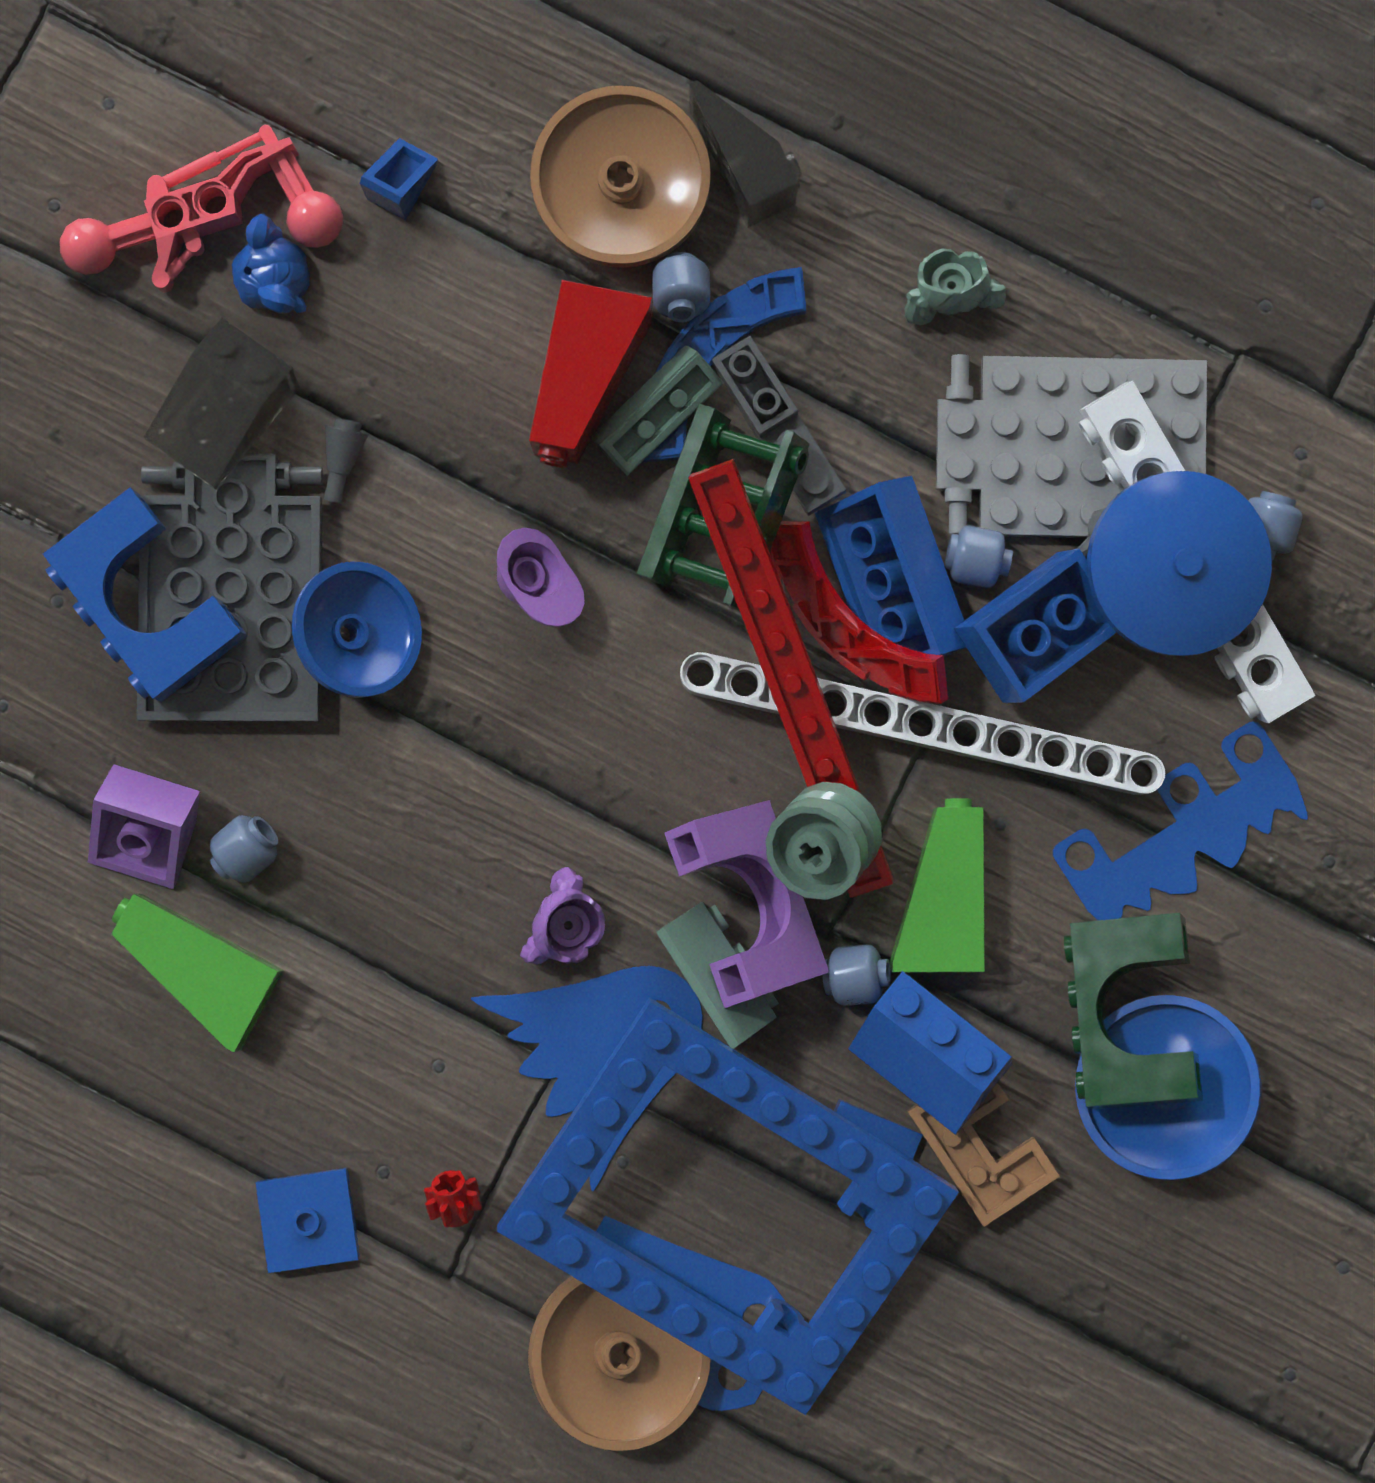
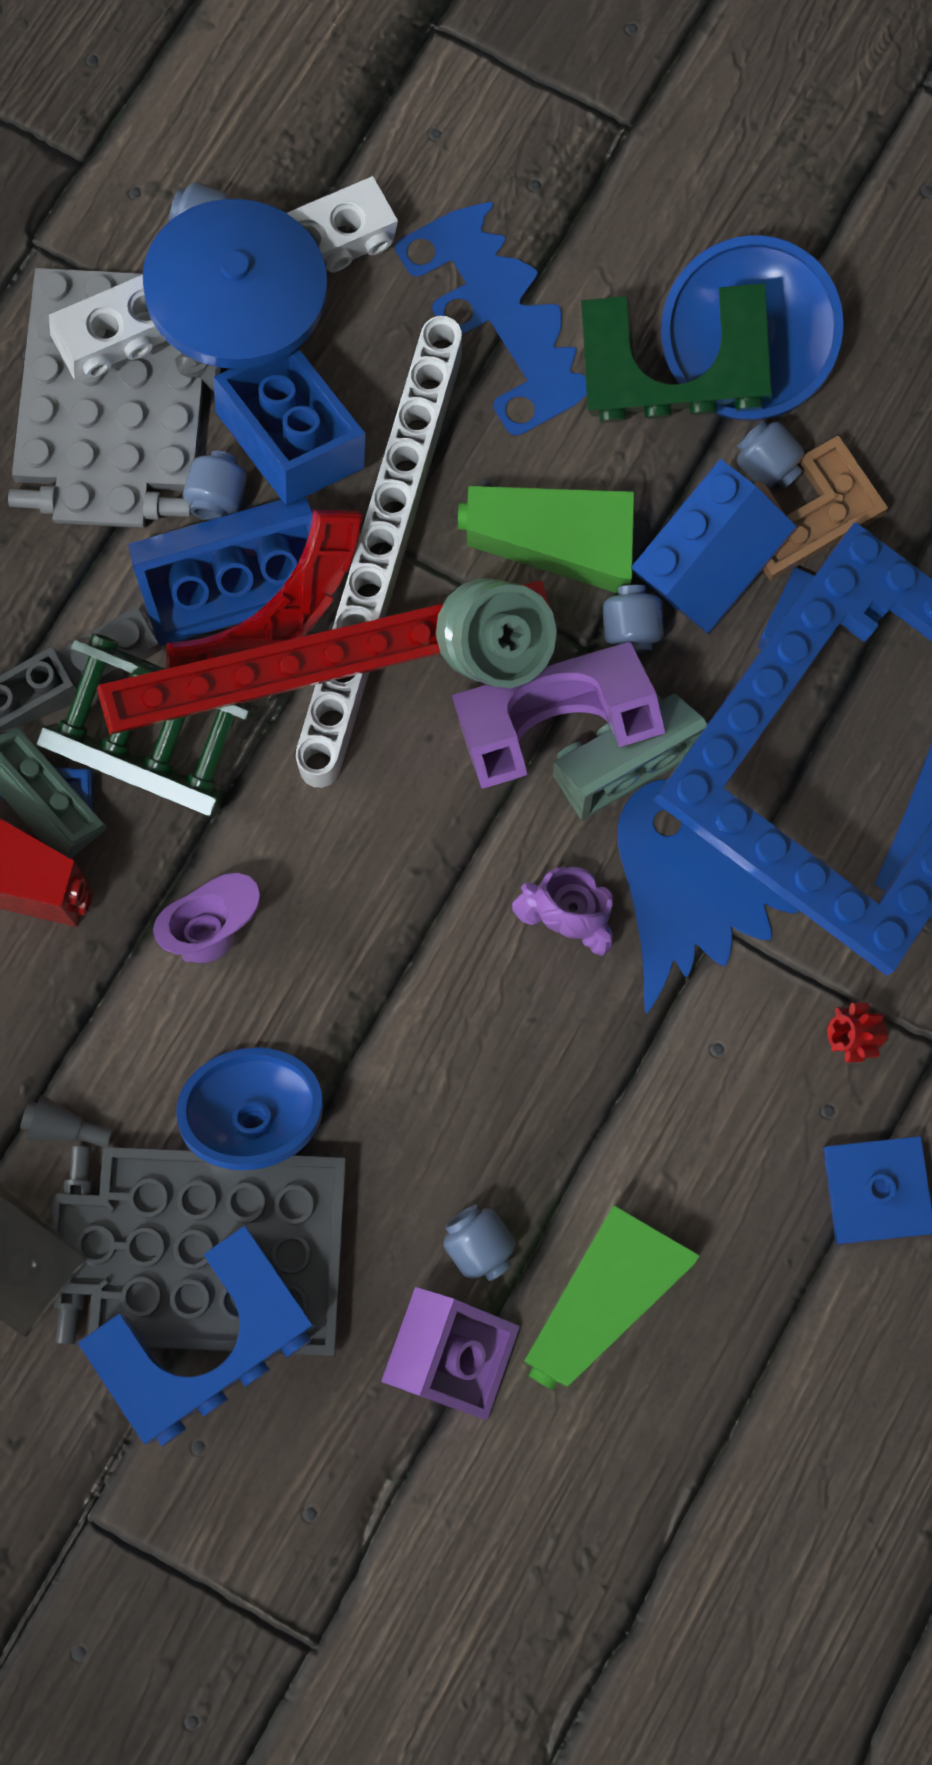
camera: 85 degrees left, 10 degrees down
(1035, 1108) = (770, 455): none -> sand blue head

